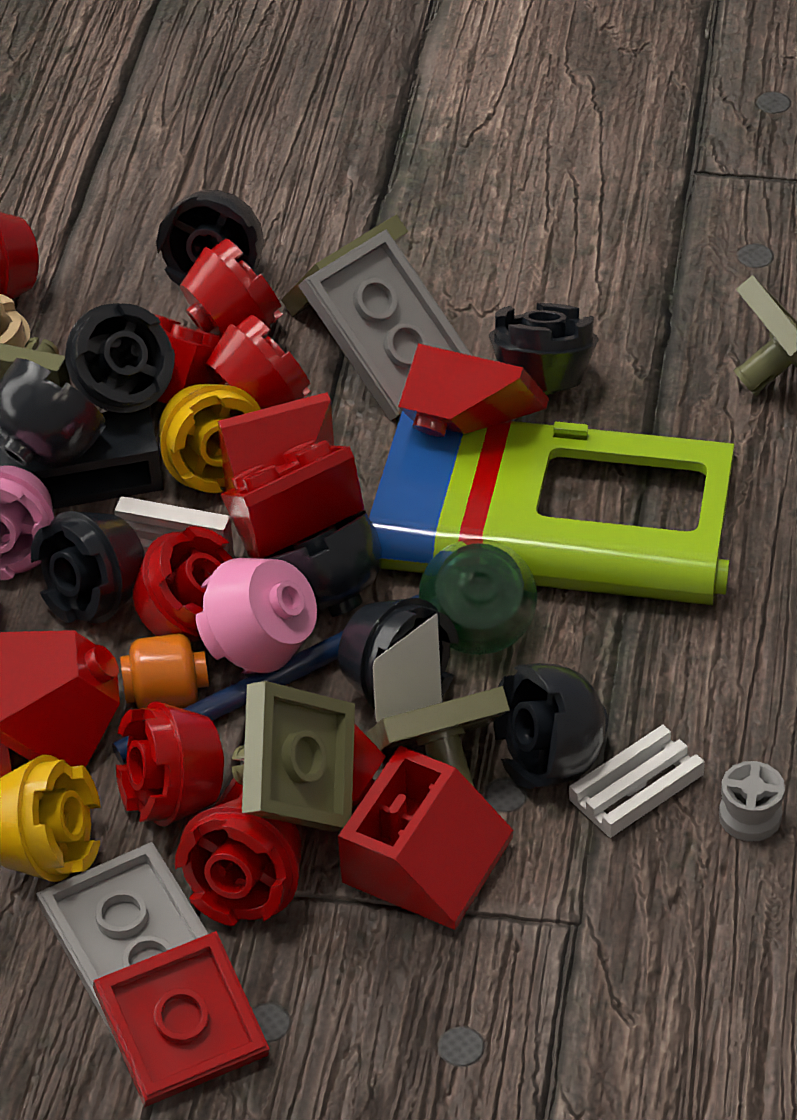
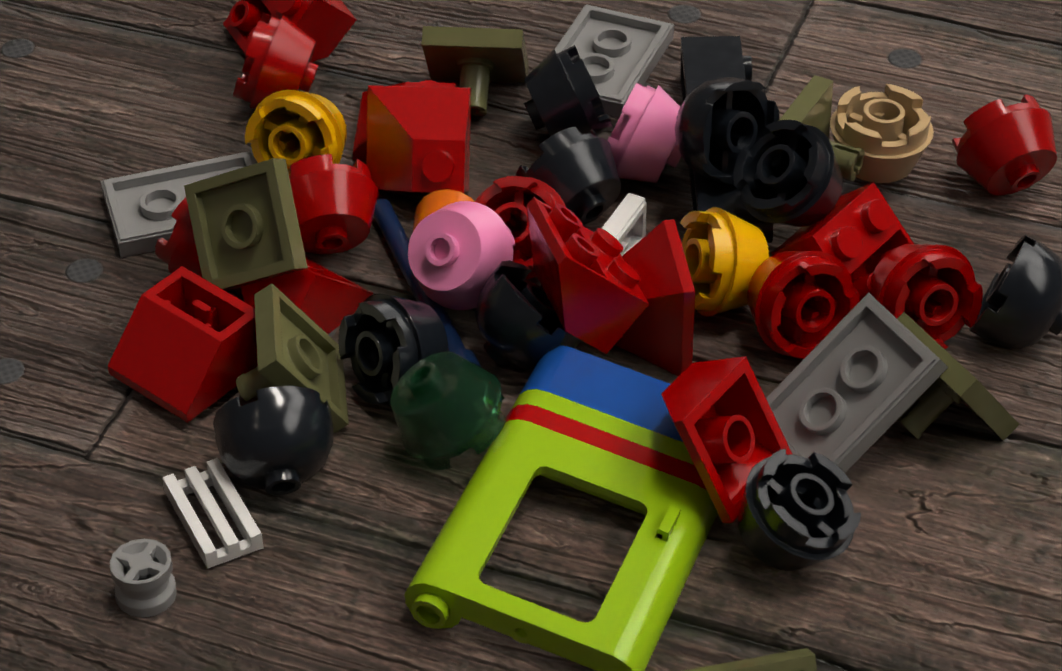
camera: 100 degrees right, 5 degrees down
(180, 1018) = (91, 208): red tile -> none
(409, 673) = (356, 345): white sticker -> none

